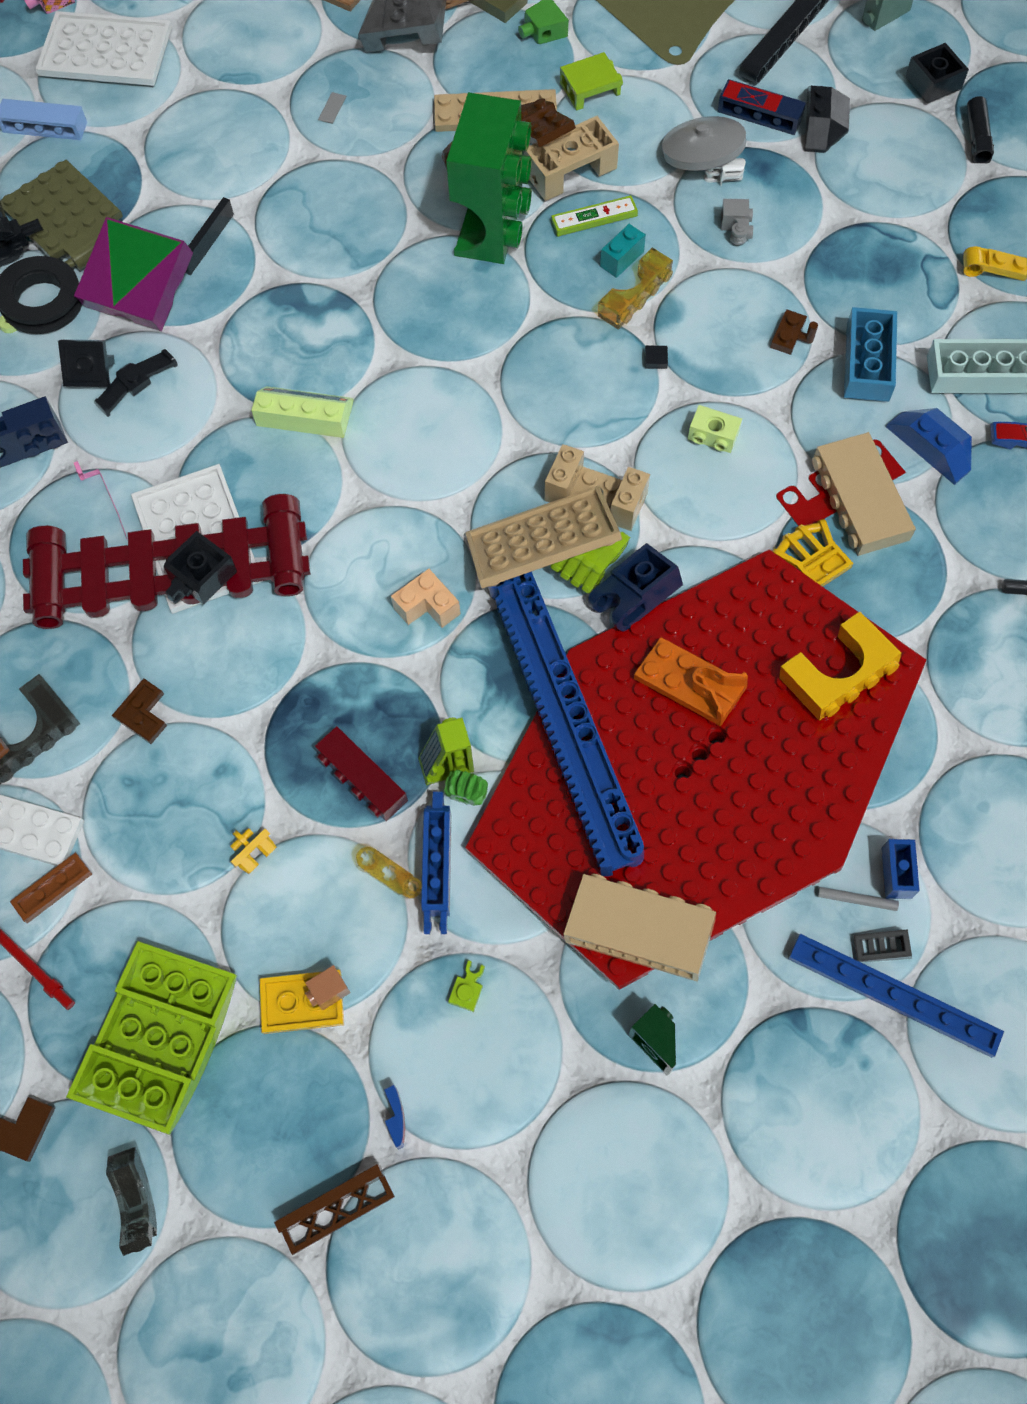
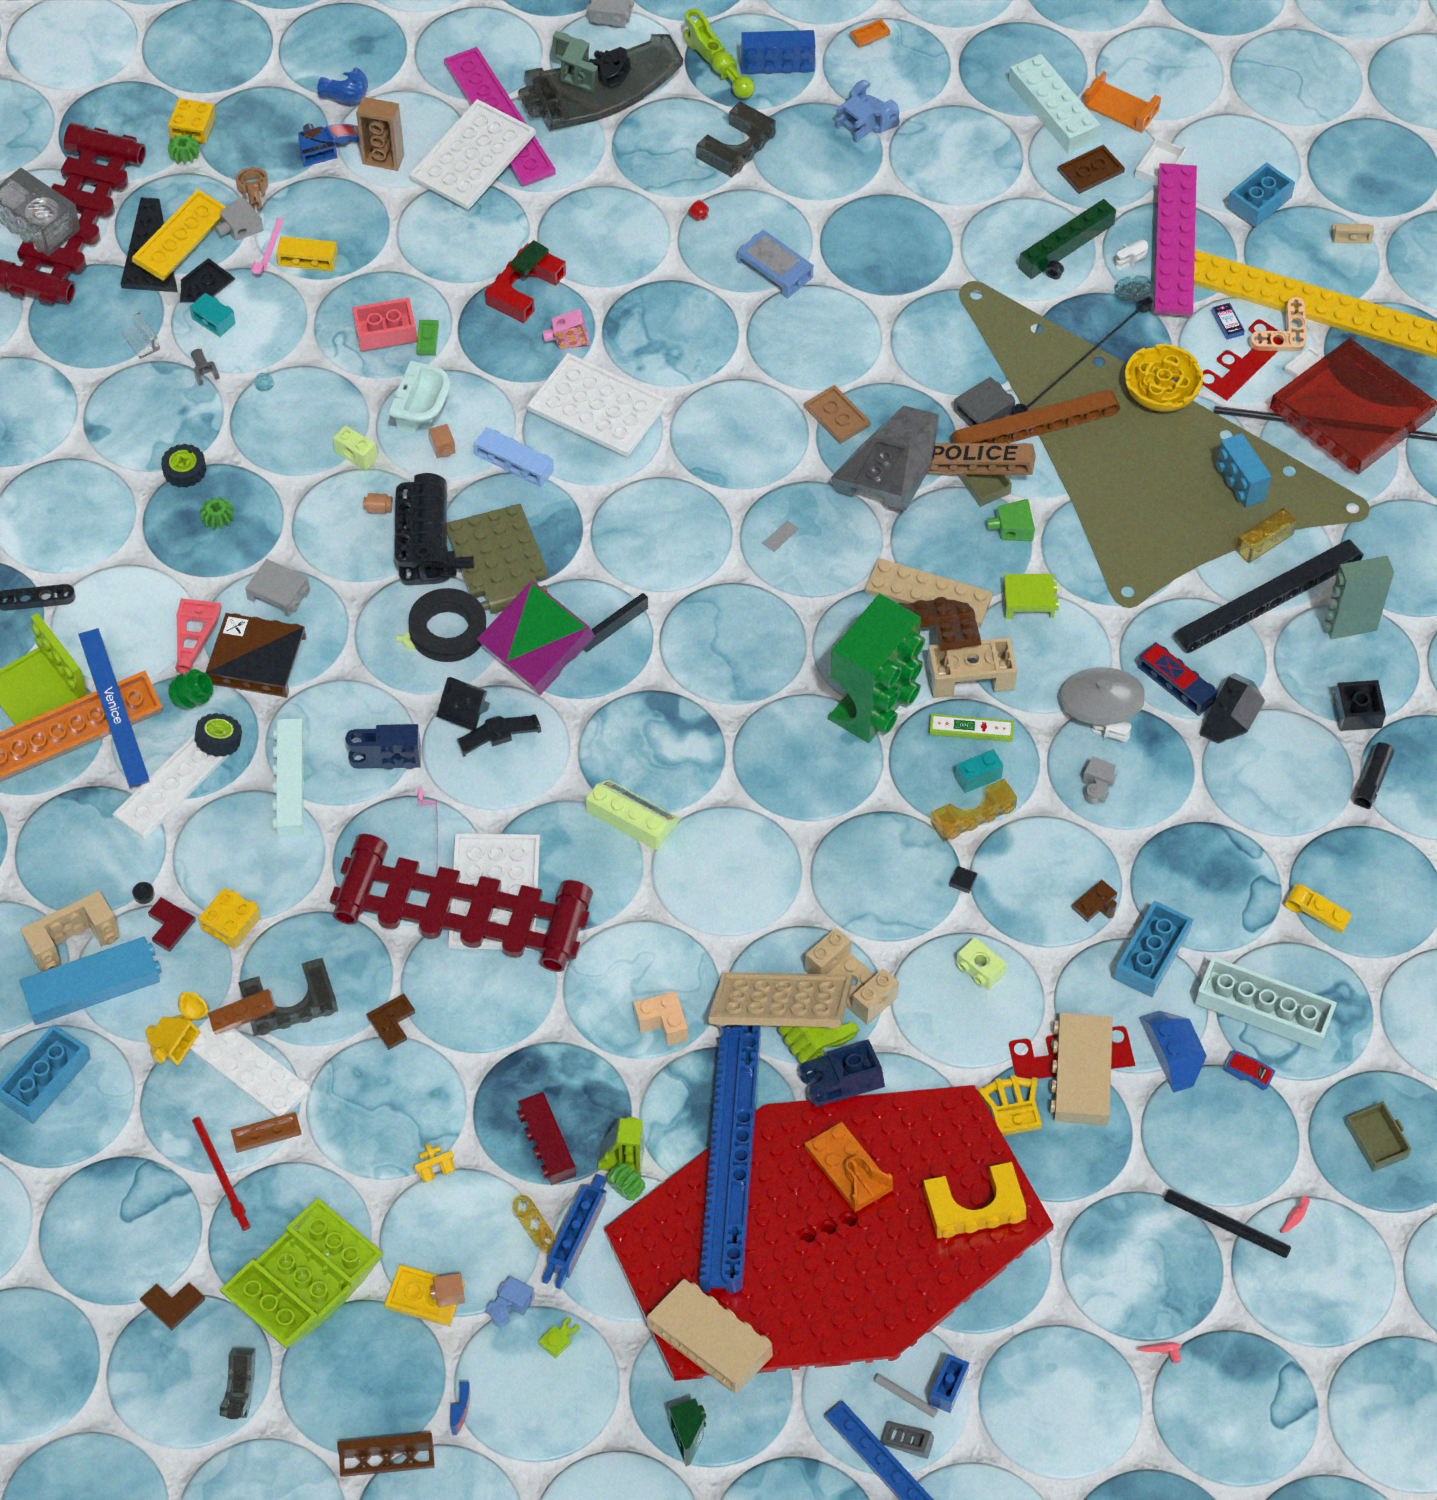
camera: 20 degrees right, 10 degrees down
(198, 569) = (484, 920): black hinge -> none
(398, 962) = (512, 1296): none -> medium blue brick

